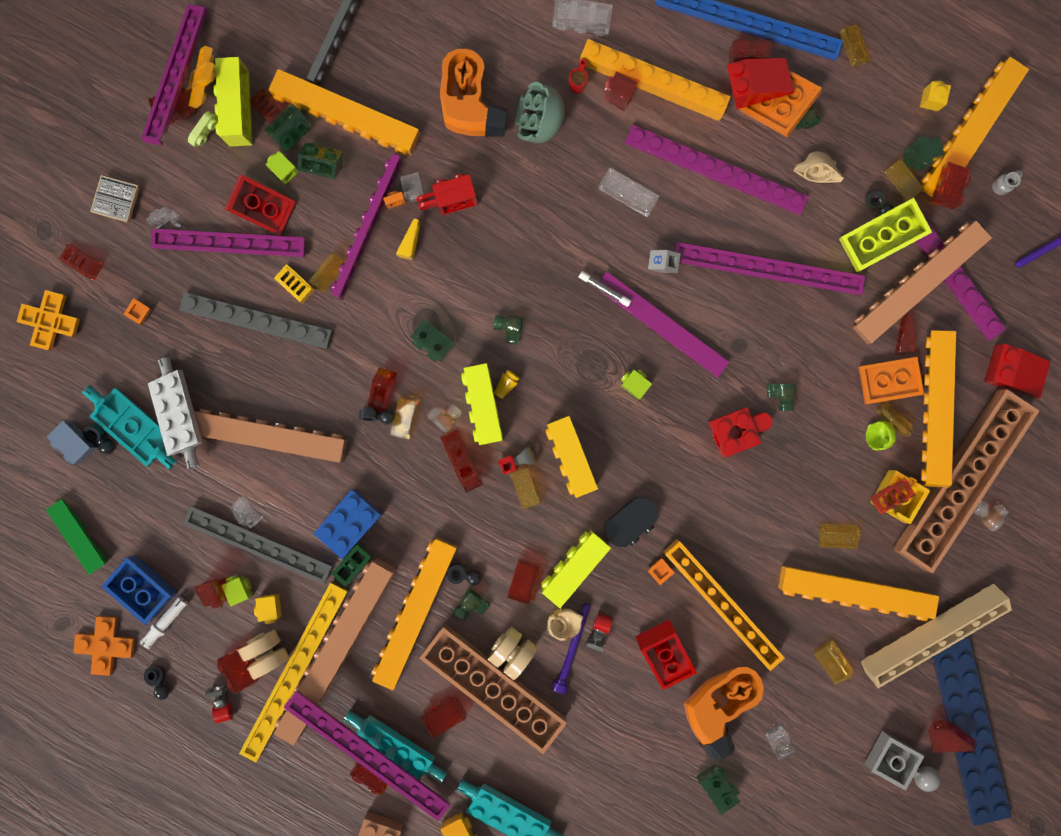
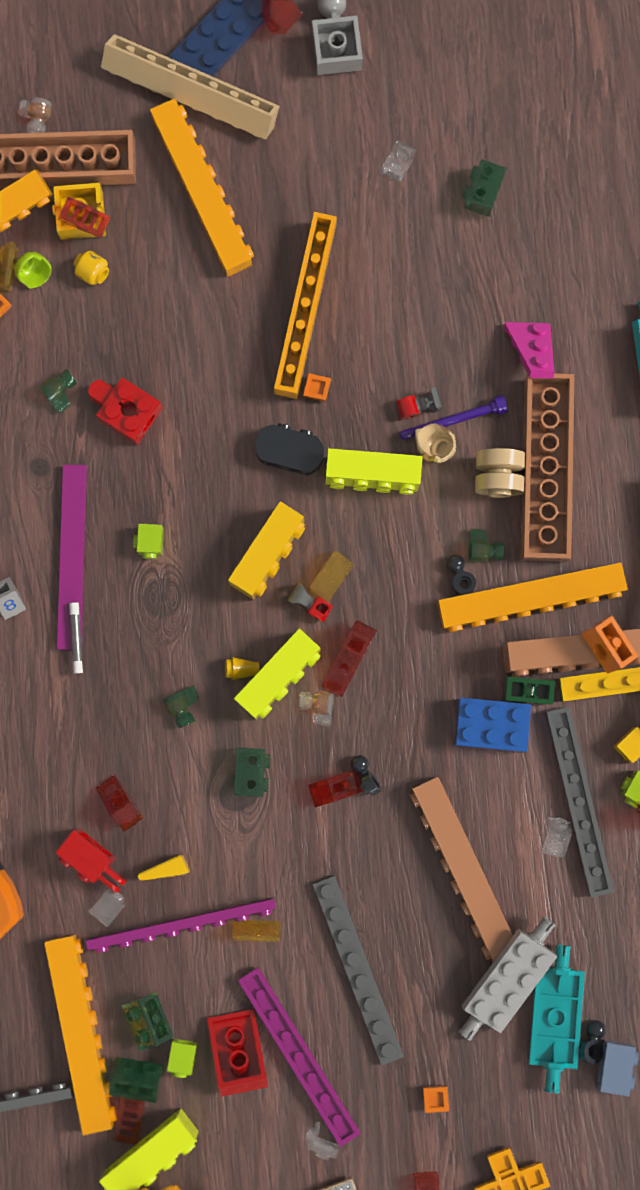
camera: 135 degrees left, 5 degrees down
(200, 132) = (191, 1170): yellowish green plate -> none
(304, 294) = (292, 937): yellow slope -> none
(339, 641) = (609, 645): none -> orange brick
(394, 199) = (133, 916): orange plate -> none
(403, 418) = (348, 747): clear yellow slope -> none
(444, 715) = (609, 496): clear red brick -> none
(474, 241) = (119, 803): none -> clear red slope
(524, 582) = (423, 511): clear red brick -> none
(582, 740) = (534, 347): none -> dark pink wing
(665, 654) = (393, 326): red slope -> none
(719, 702) = (401, 243): orange piece -> none
(833, 662) = (285, 163): clear yellow slope -> none
(839, 536) = (159, 242): clear yellow slope -> none
(853, 476) = (91, 267): none -> yellow head

